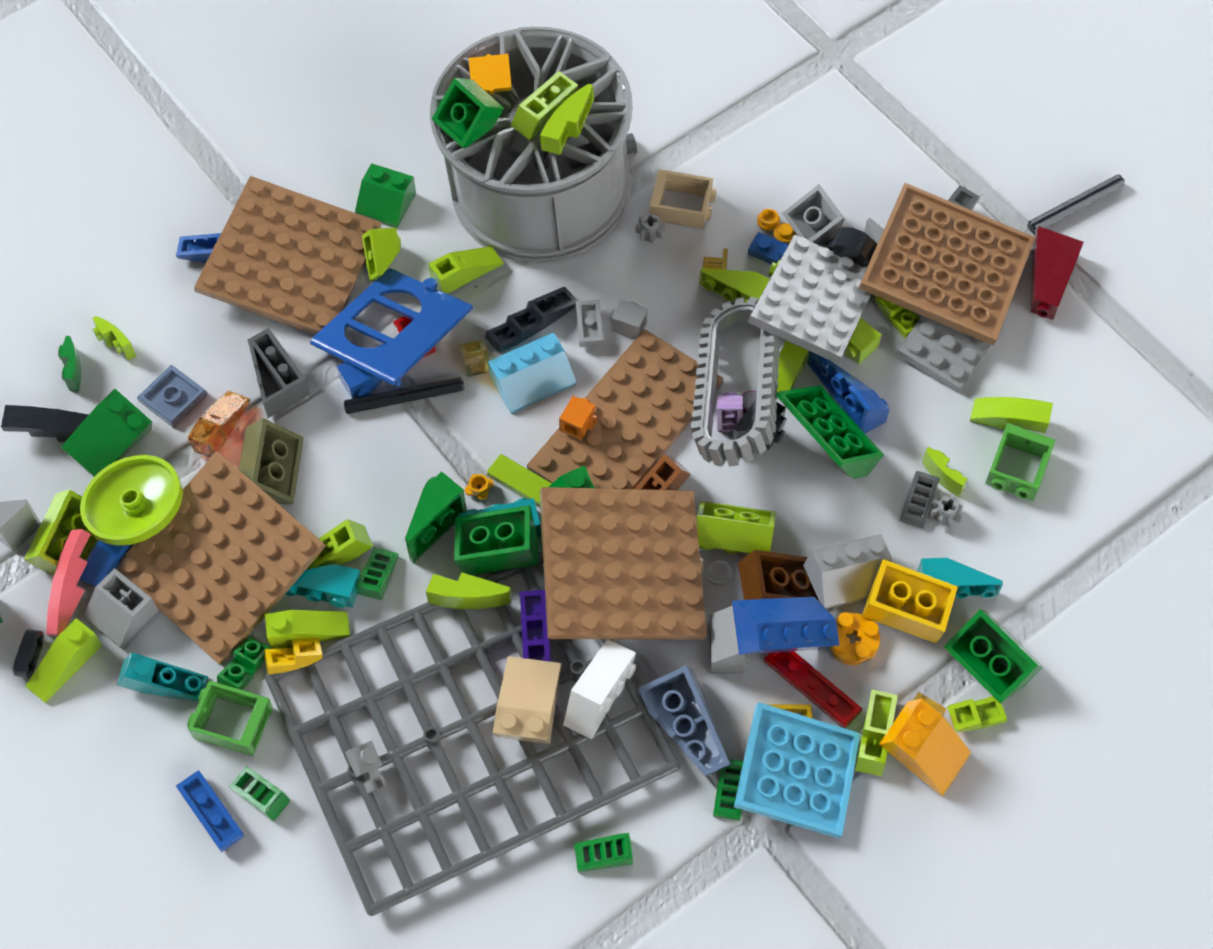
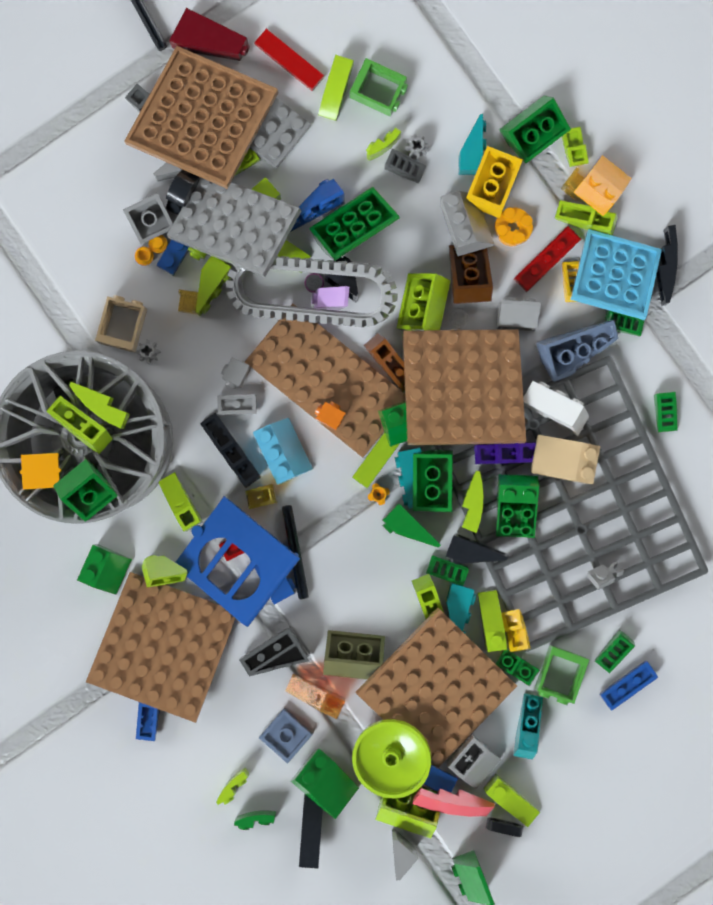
camera: 90 degrees left, 25 degrees up
(403, 591) = (470, 551): none -> black slope
(465, 646) = (517, 505): none -> green slope
(783, 625) = (518, 272): blue slope -> none
(808, 845) = (667, 271): none -> black slope
(1040, 362) = (289, 59): none -> red tile

